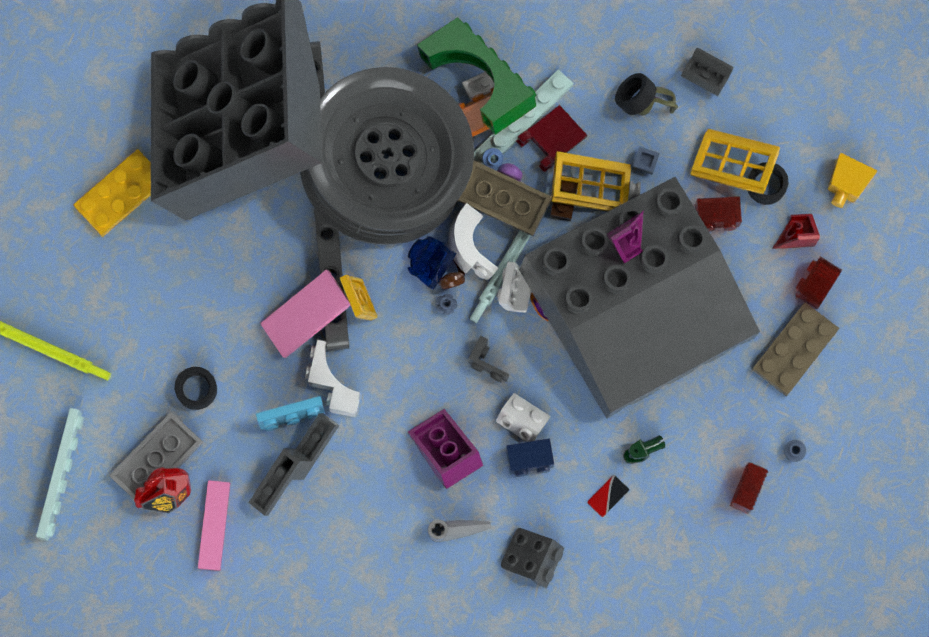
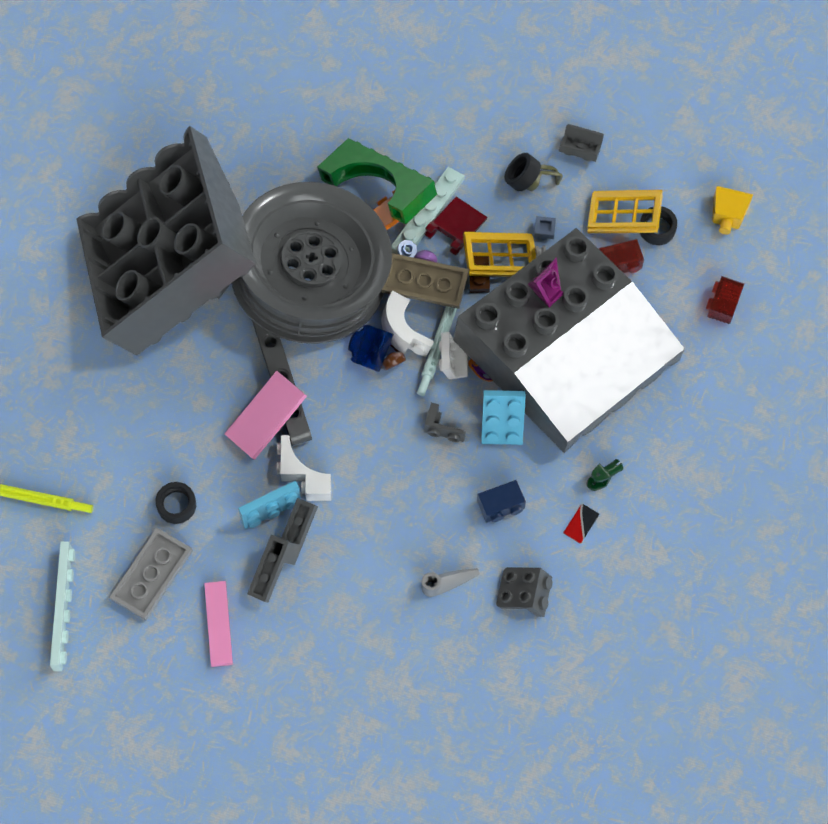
camera: 10 degrees left, 10 degrees down
(117, 194) = (68, 347): yellow plate -> none
(173, 489) = (173, 597): red helmet -> none
(358, 297) = (311, 391): yellow tile -> none
(446, 448) = (422, 510): magenta slope -> none
(447, 310) = (393, 389): sand blue plate -> none
(478, 84) = (379, 191): white plate -> none
(522, 418) = (486, 469): white bracket -> none
(550, 369) = (503, 417): none -> medium azure plate
(749, 488) = (709, 488): clear red brick -> none
(790, 455) = (742, 454): sand blue plate -> none
(795, 349) = (719, 361): dark tan plate -> none
(799, 232) = (697, 262): red slope -> none

